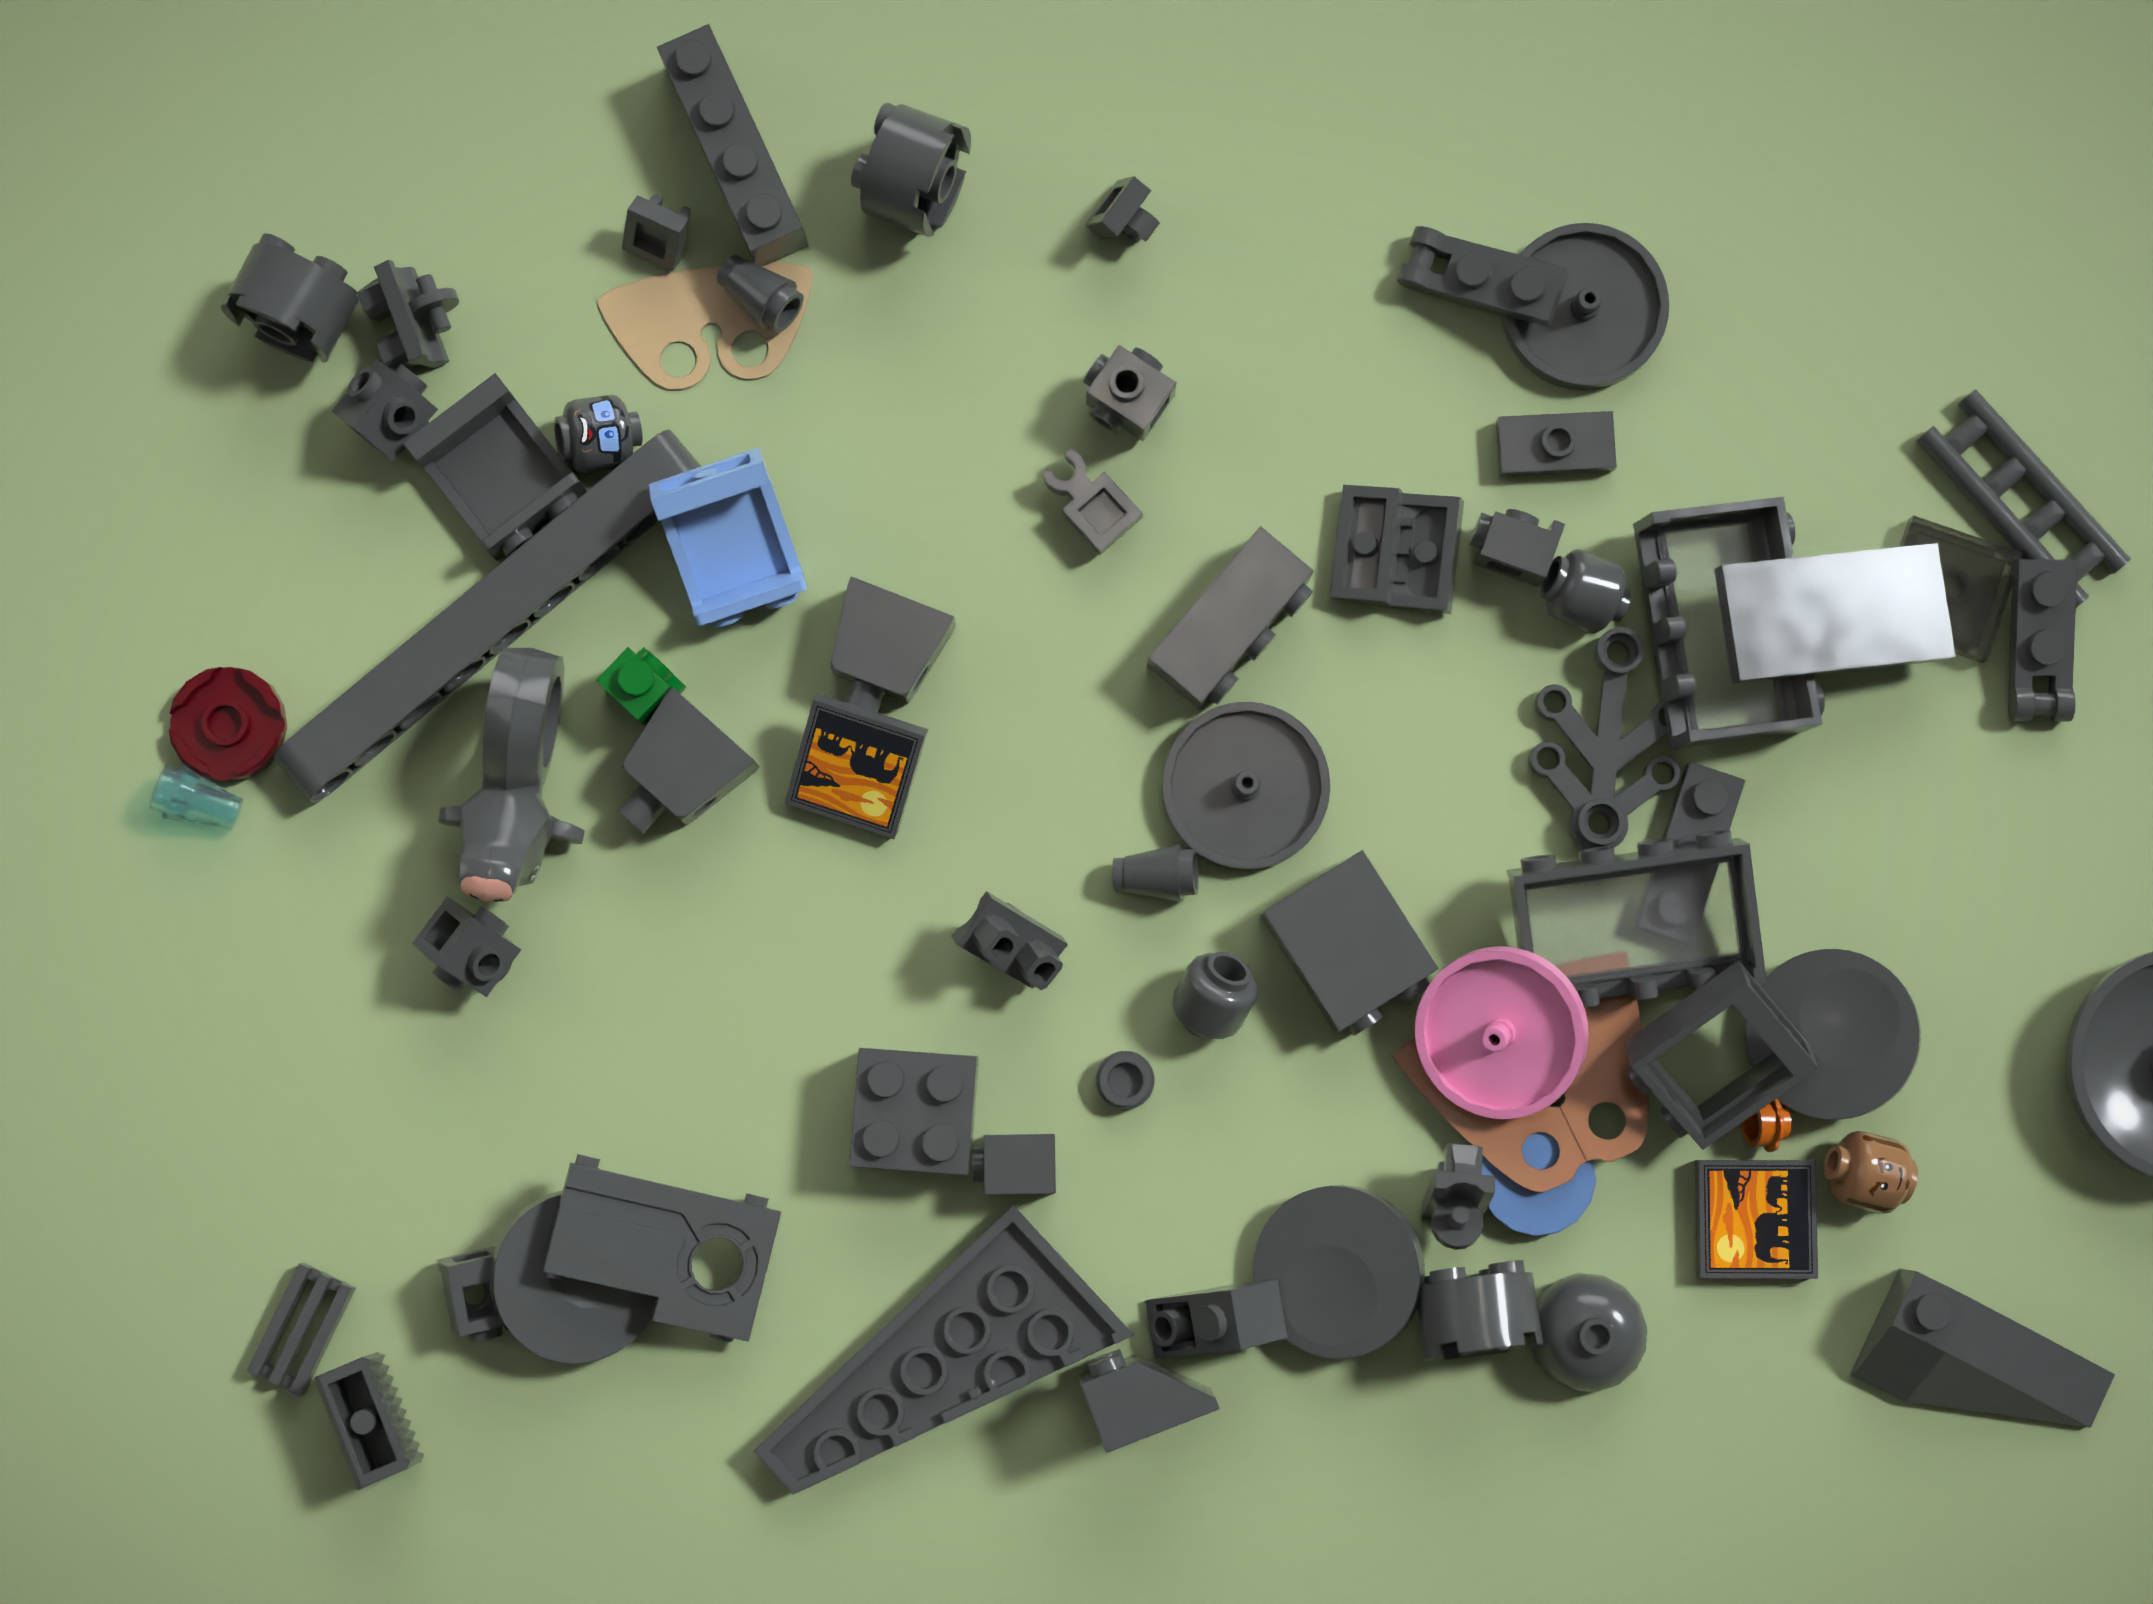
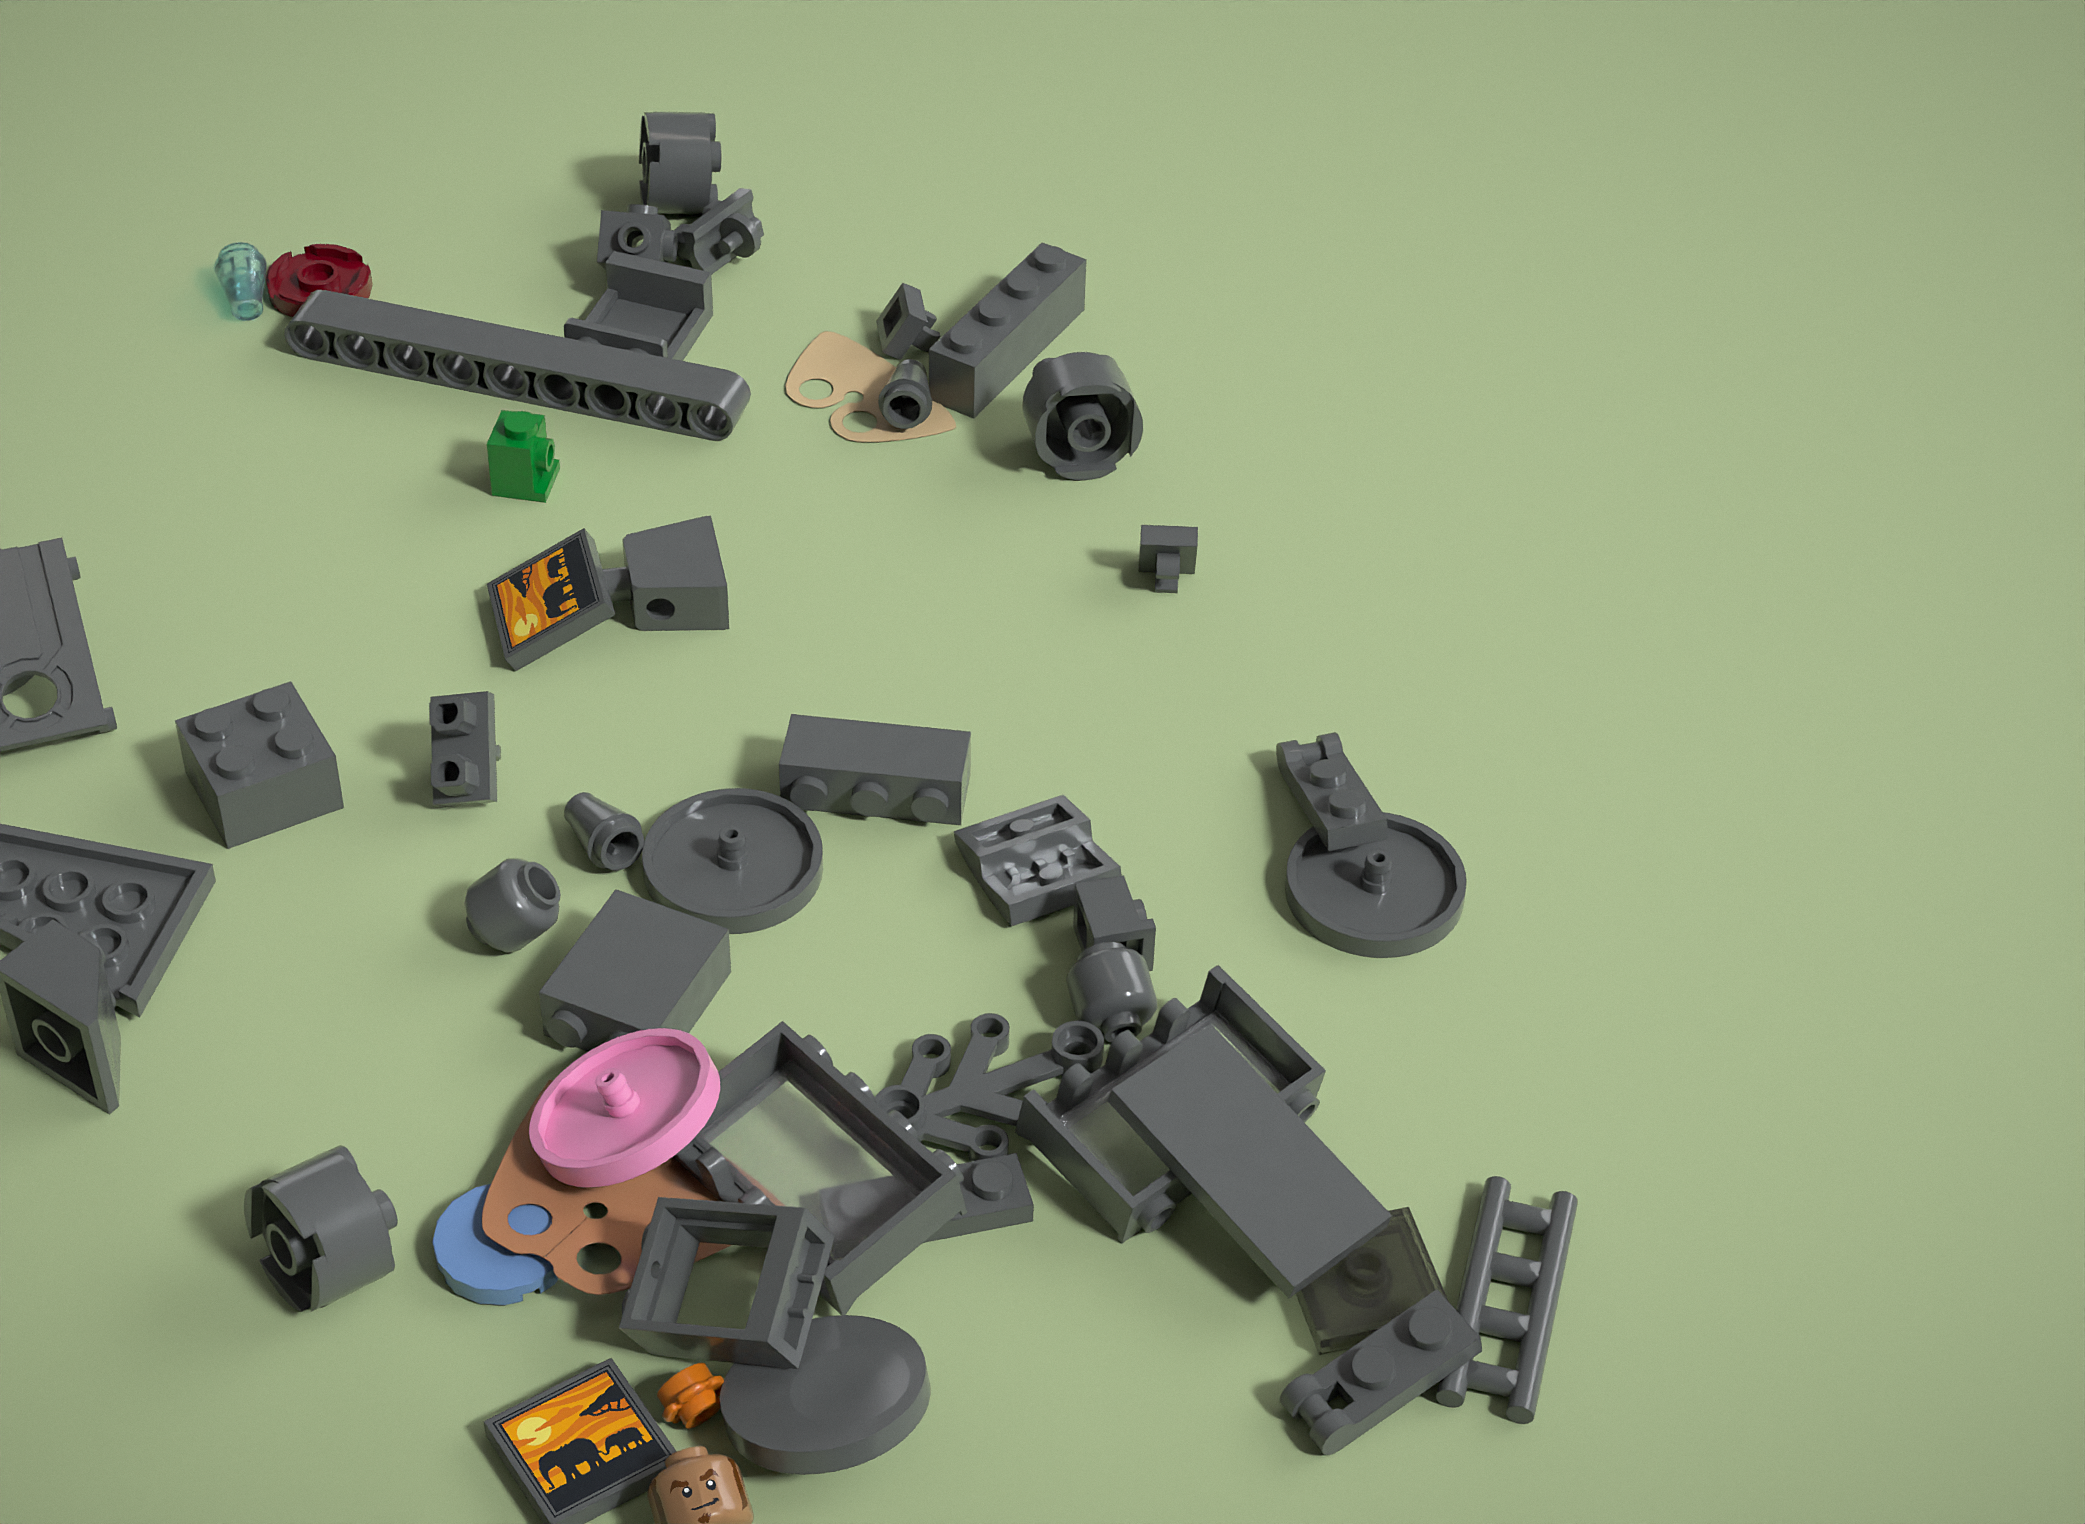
camera: 55 degrees right, 40 degrees down
(467, 947) = (210, 433): dark grey brick -> none
(507, 820) = (348, 418): dark grey animal -> none
(597, 433) = (714, 344): dark grey head -> none
(681, 765) = (473, 508): dark grey torso -> none
(728, 538) = (689, 441): light blue panel -> none
(1016, 1164) = (256, 855): dark grey brick -> none
(1097, 508) = (903, 651): plate -> none
(1125, 1080) = (390, 904): dark grey tile -> none
(1134, 410) = (1017, 616): dark grey brick -> none
(1216, 1319) = (192, 1054): dark grey slope -> none
(1342, 1270) = (296, 1112): dark grey piece -> none
(1458, 1197) = (433, 1156): dark grey hips -> none
(1556, 443) = (1233, 921): dark grey plate -> none
(1589, 1332) = (361, 1357): dark grey cylinder -> none

